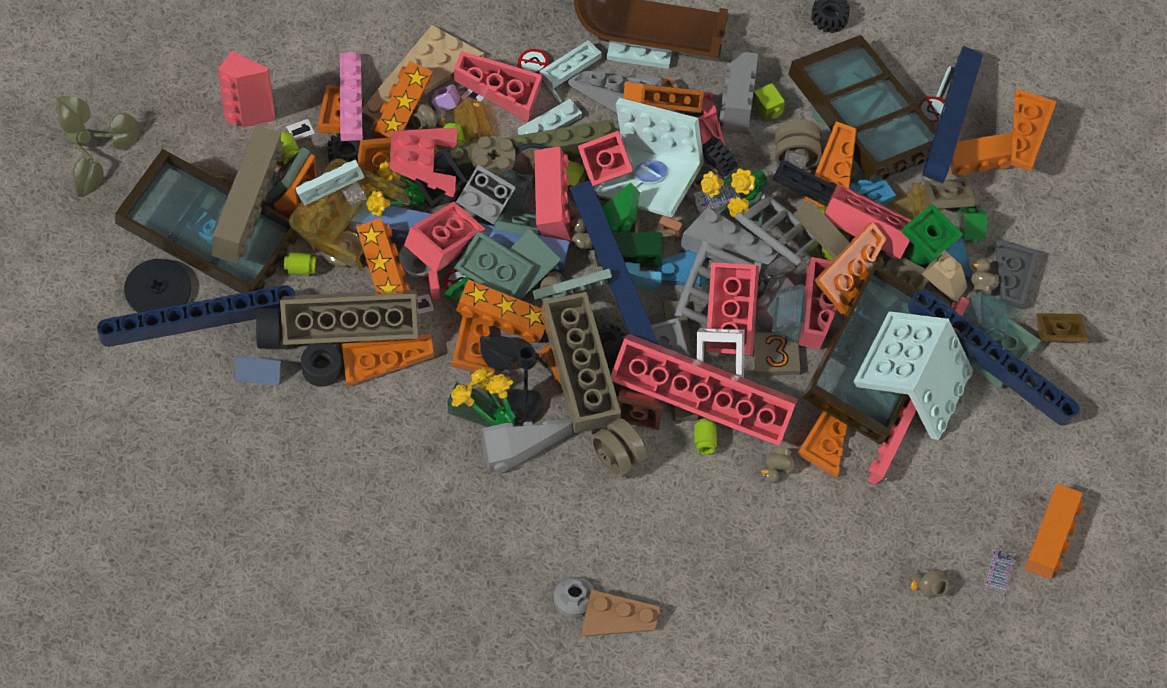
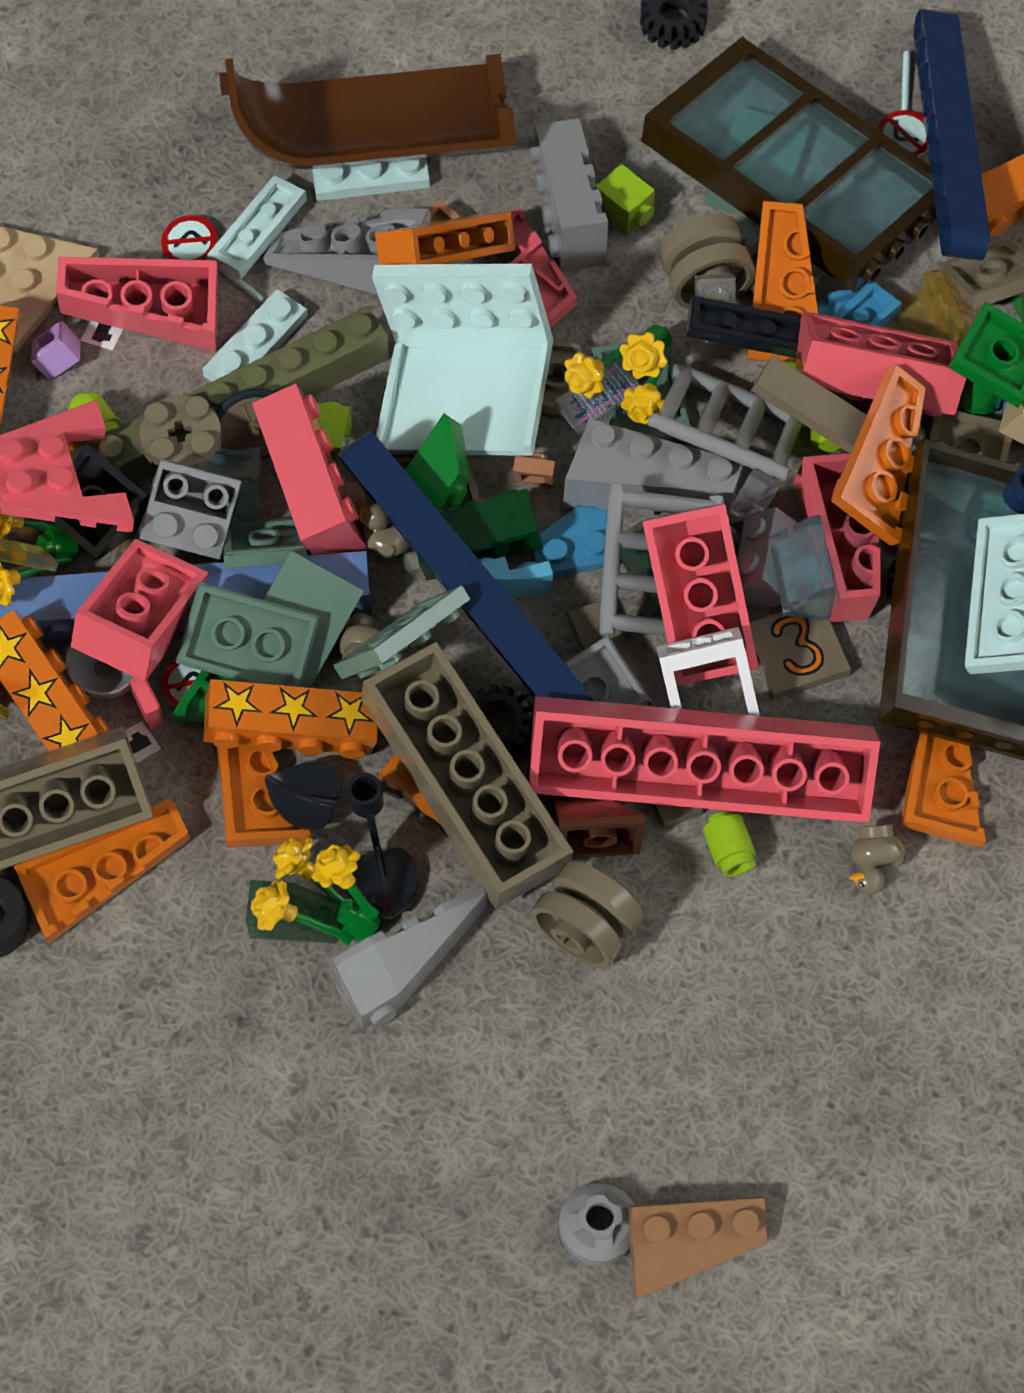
camera: 15 degrees left, 5 degrees up
(426, 118) = (34, 396): dark tan animal -> none
(472, 119) = (117, 375): clear yellow panel -> none
(606, 158) = (381, 381): coral slope -> none
(650, 172) = (465, 383): piece -> none
(719, 156) = (578, 320): black tyre -> none

